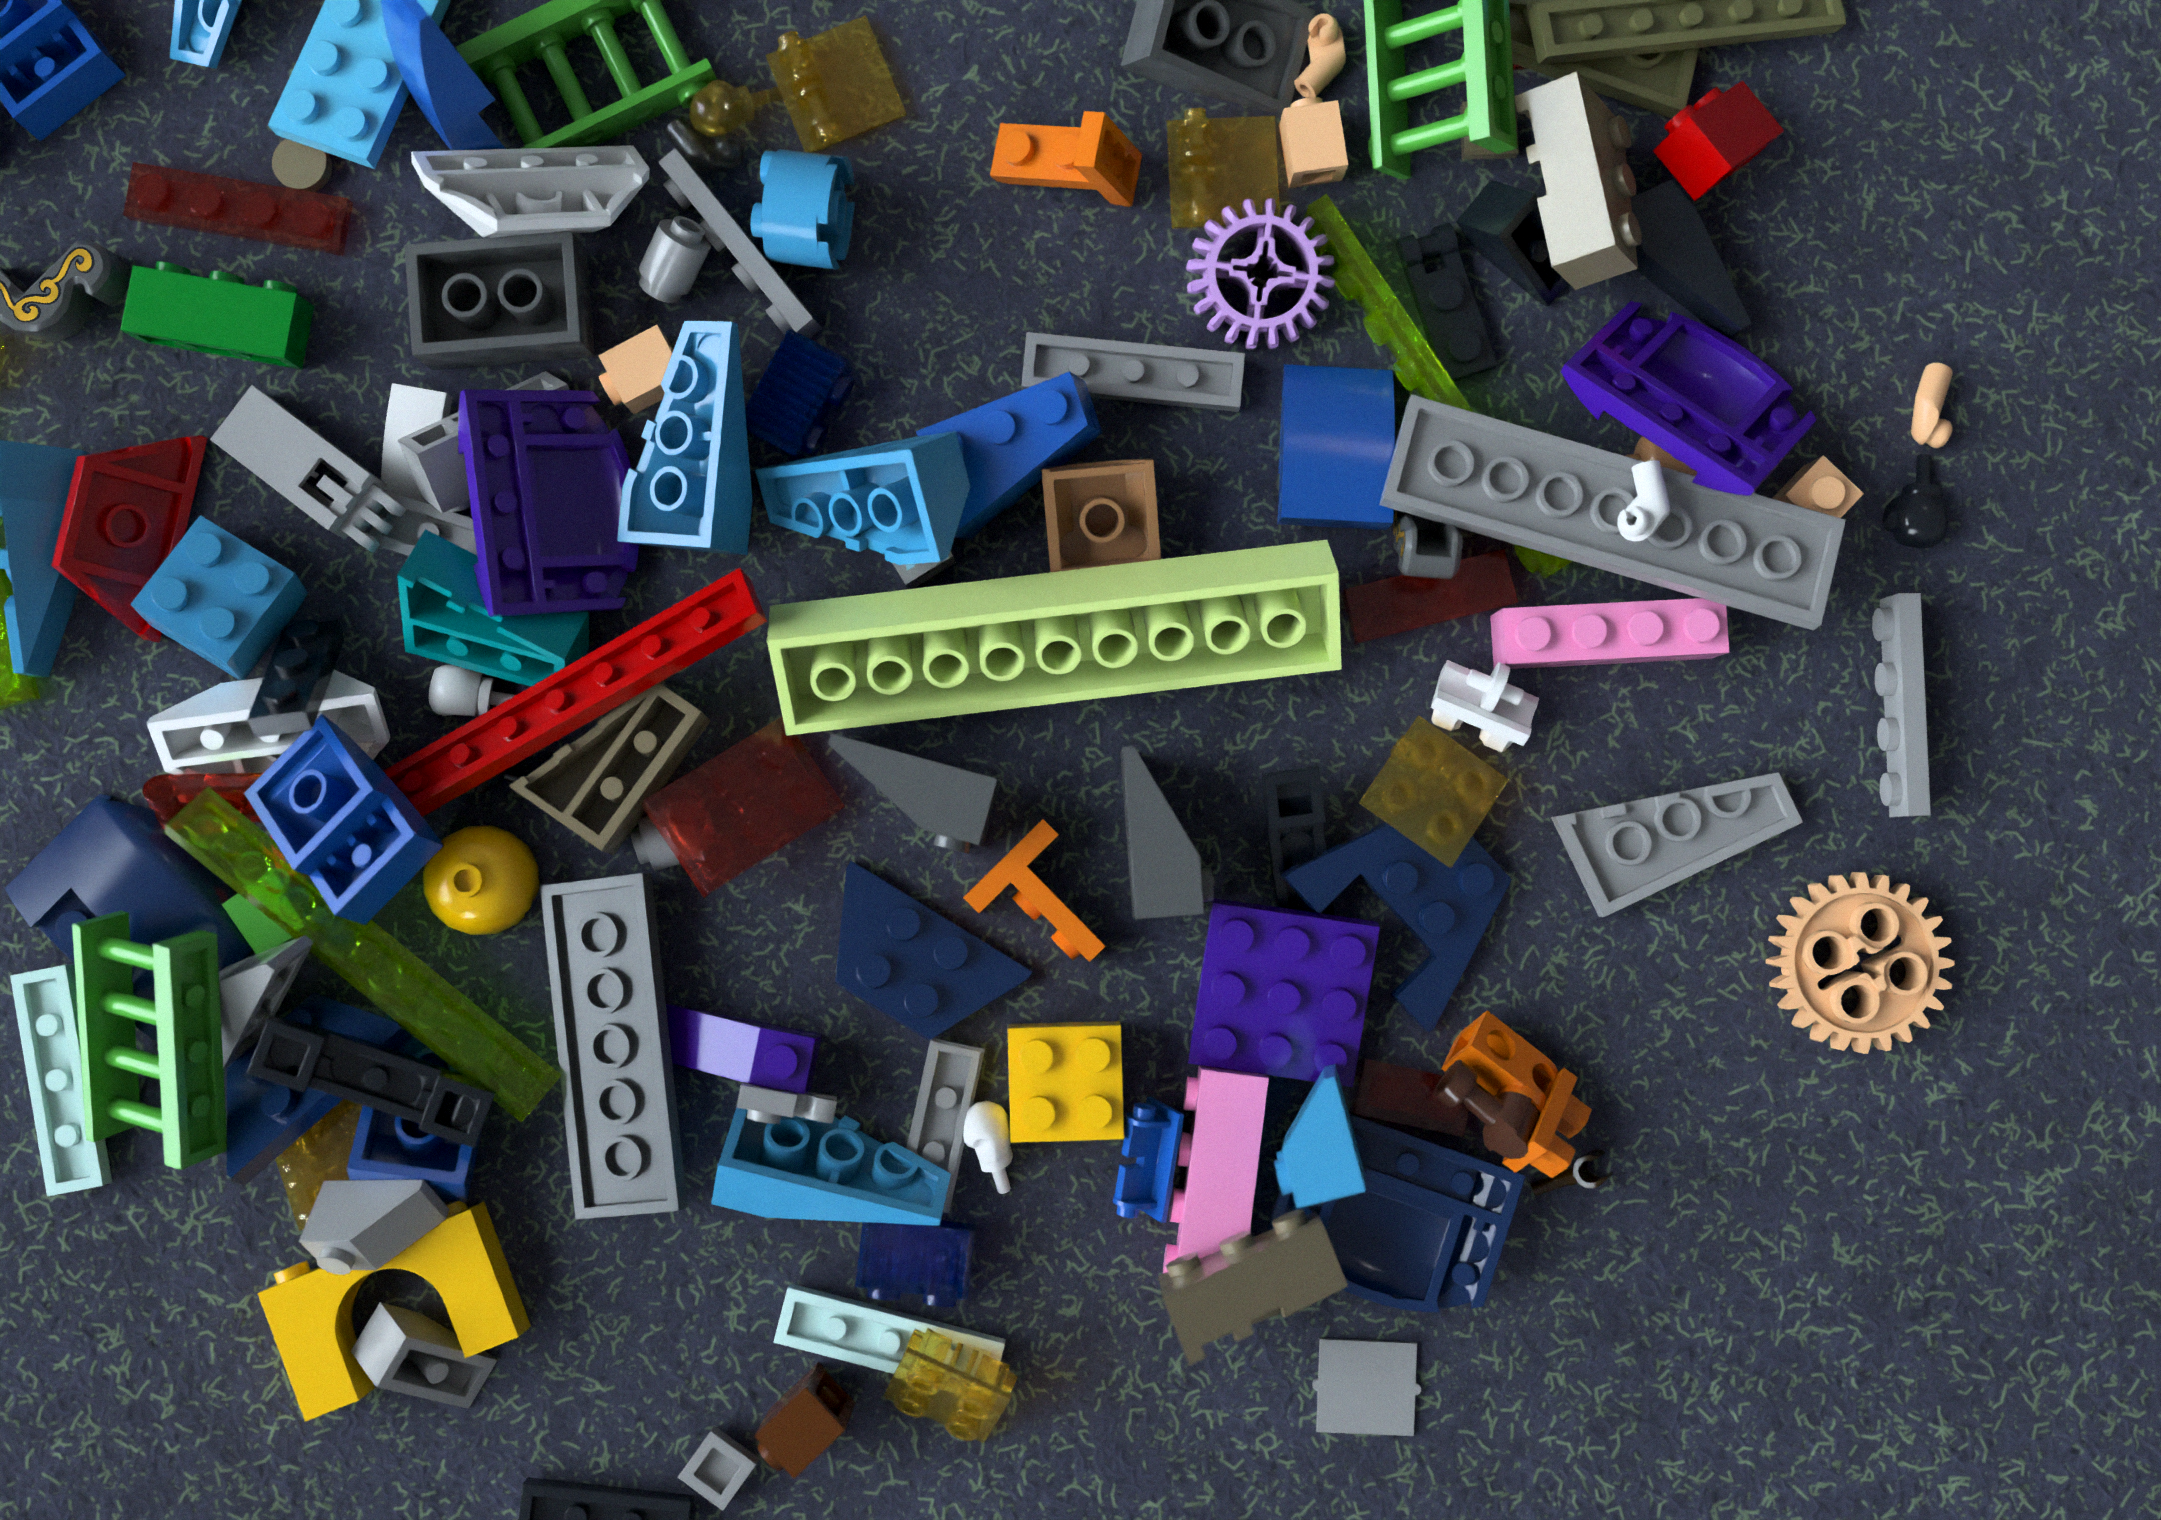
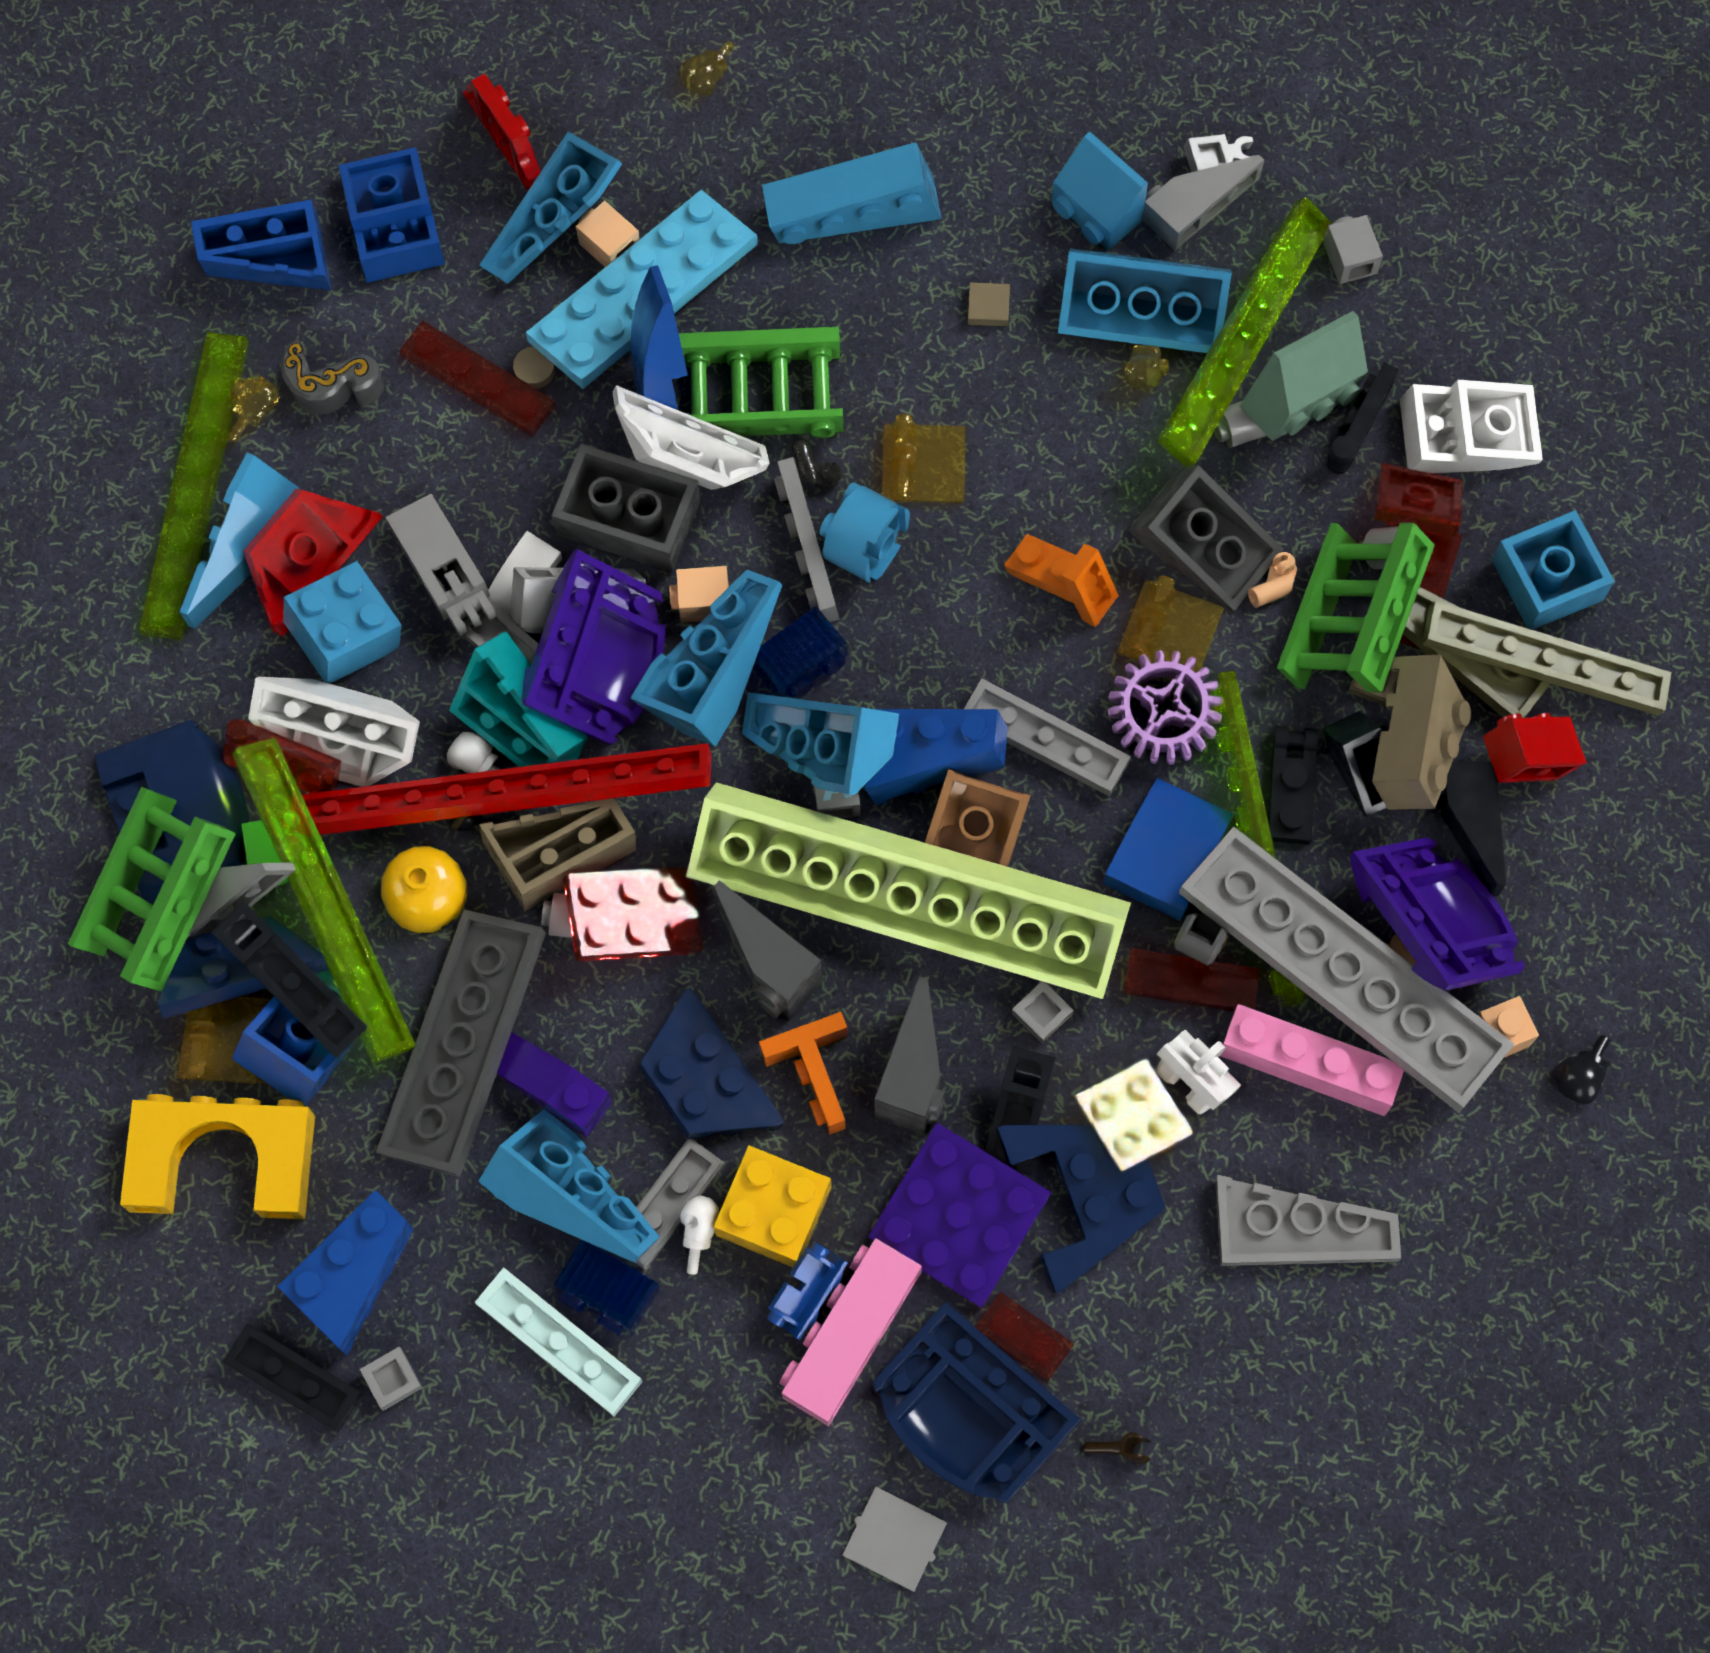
camera: 30 degrees right, 15 degrees down
(52, 1059) = (67, 893): light aqua plate -> none
(217, 315) = (430, 440): green brick -> none
(296, 678) = (370, 692): black plate -> none
(342, 821) = (354, 799): blue slope -> none
(369, 1222) = (237, 1081): light grey slope -> none
(419, 1357) = (221, 1202): light grey slope -> none
(610, 1374) = (349, 1270): none -> blue wedge
(673, 259) = (757, 529): light grey brick -> none
(723, 108) = (839, 446): clear yellow piece -> none
(771, 1104) = (555, 1124): light grey plate -> none
(804, 1422) = (471, 1362): reddish brown brick -> none
(947, 1395) = (584, 1392): clear yellow hinge -> none
(1250, 1281) = (841, 1397): dark tan wedge -> none
(1273, 710) = (1042, 1011): none -> light grey plate
(1313, 142) = (1242, 635): light nougat brick -> none
(1320, 1147) = (938, 1319): dark azure slope -> none
(1529, 1094) = (1098, 1359): orange hips -> none
(1650, 505) = (1372, 970): white arm -> none
(1881, 1005) = (1410, 1422): light nougat gear -> none
(1903, 686) = (1504, 1224): light grey plate -> none
(1928, 404) = (1620, 1000): light nougat arm -> none

